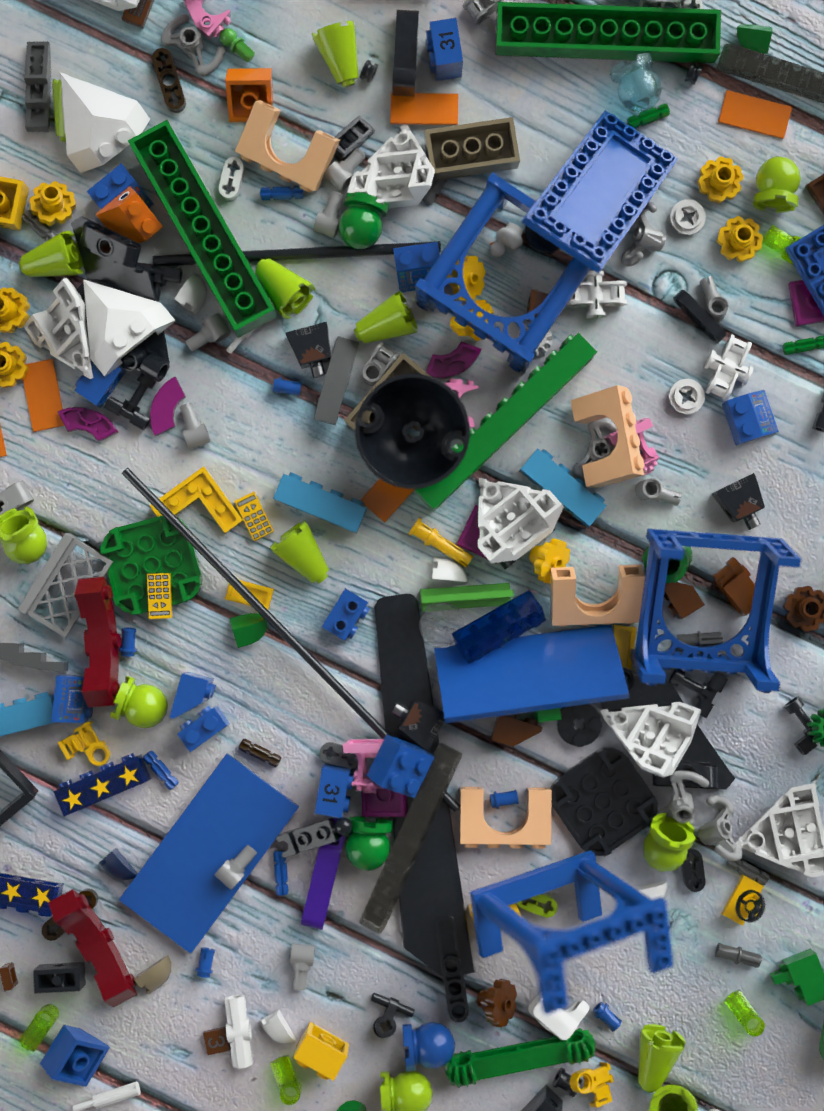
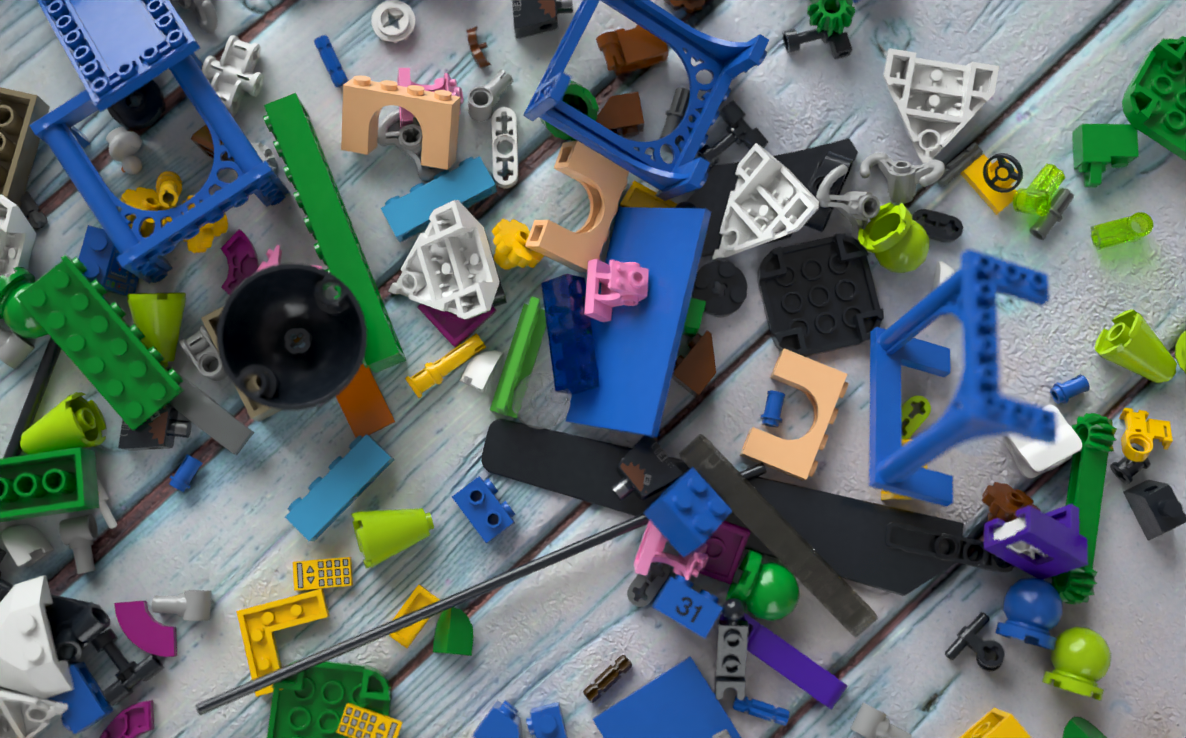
camera: 70 degrees left, 5 degrees down
(356, 290) = (101, 342): none -> green bracket
(480, 1032) = (1039, 541): none -> dark purple brick
(489, 287) = (168, 188): none -> yellow pin
(549, 649) = (620, 286): none -> bright pink tile
(635, 508) = (513, 155): none -> white beam
(636, 362) = (331, 61): none -> blue axle
(691, 467) = (475, 48): none -> reddish brown piece
(745, 939) = (1037, 197): none -> clear neon green piece

